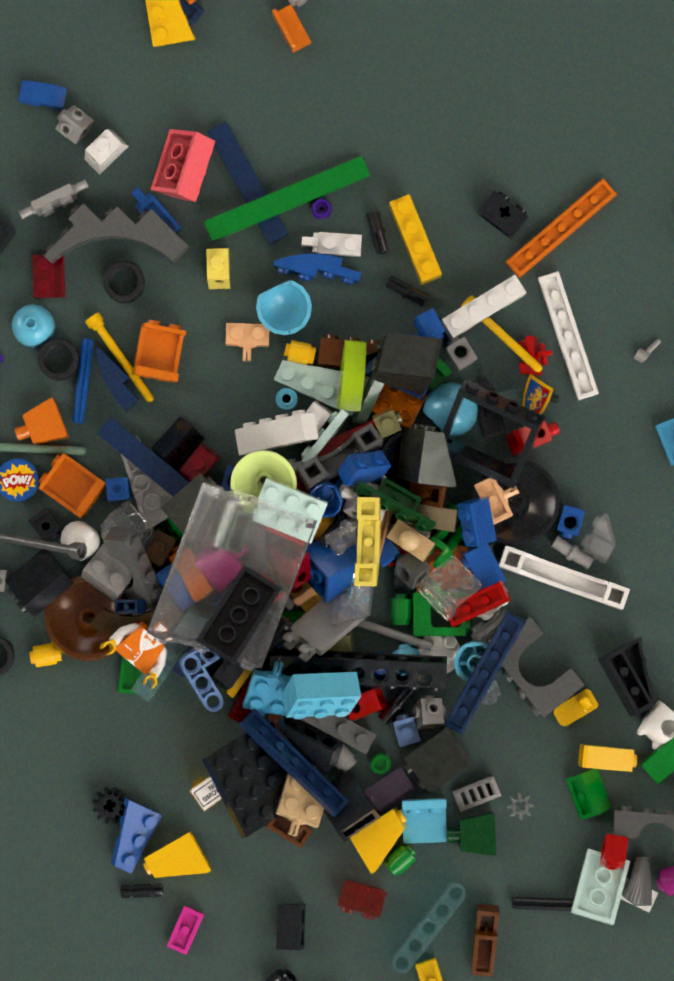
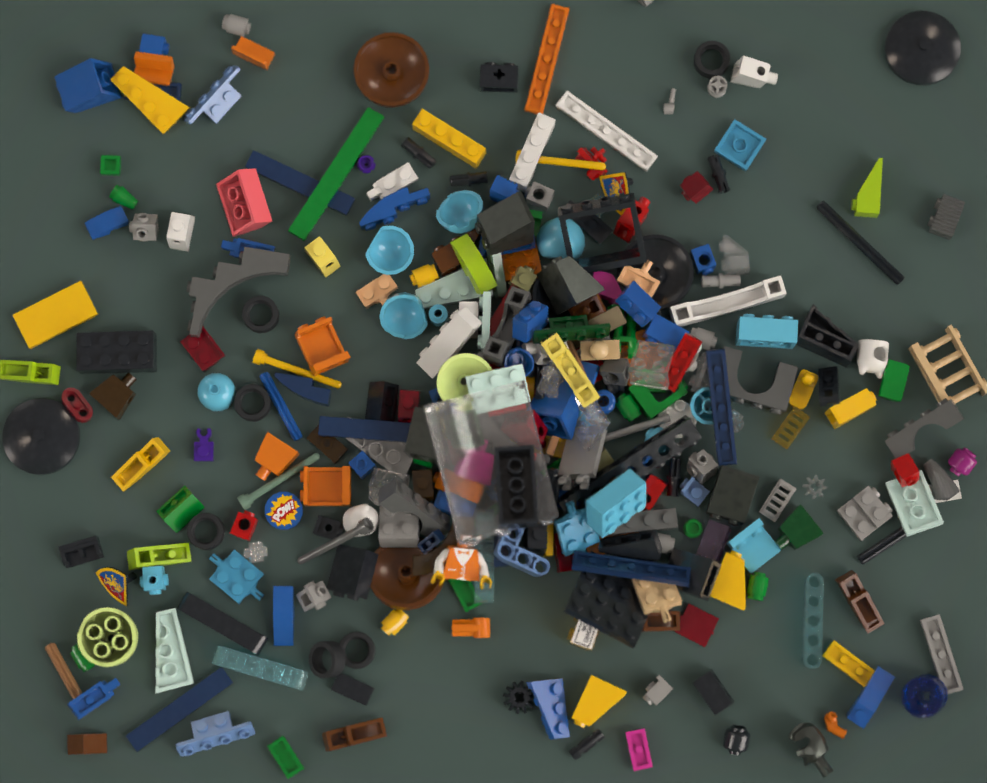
camera: 30 degrees left, 5 degrees down
(48, 203) = (172, 285): light grey plate -> none
(74, 81) = (123, 197): none -> green cone
(83, 42) = (110, 165): none -> green plate
(101, 451) = (328, 445): none -> dark brown plate
(115, 712) = (477, 627): none -> orange piece
(226, 50) = (217, 100): none -> medium blue bracket
(239, 889) = (657, 691): none -> light grey brick
(253, 378) = (403, 316): none -> medium azure cylinder
(320, 854) = (697, 625): none -> dark red piece
(361, 898) = (750, 634): clear red brick -> none
(375, 316) = (460, 211): none -> medium azure cylinder
(389, 590) = (609, 398): none -> blue head
(407, 136) = (391, 69): none -> reddish brown dish
(464, 483) = (610, 285): none -> dark pink slope
(518, 595) = (707, 337): none -> light grey brick
(549, 862) = (865, 512): none -> light grey plate
(555, 729) = (800, 414): none -> clear yellow slope
(579, 631) = (766, 331): none -> medium azure brick
(588, 793) = (857, 443): green panel -> none
(599, 723) = (828, 385): none -> black plate
(611, 448) = (695, 187): none -> dark red brick
(643, 450) = (718, 174): none -> black pin

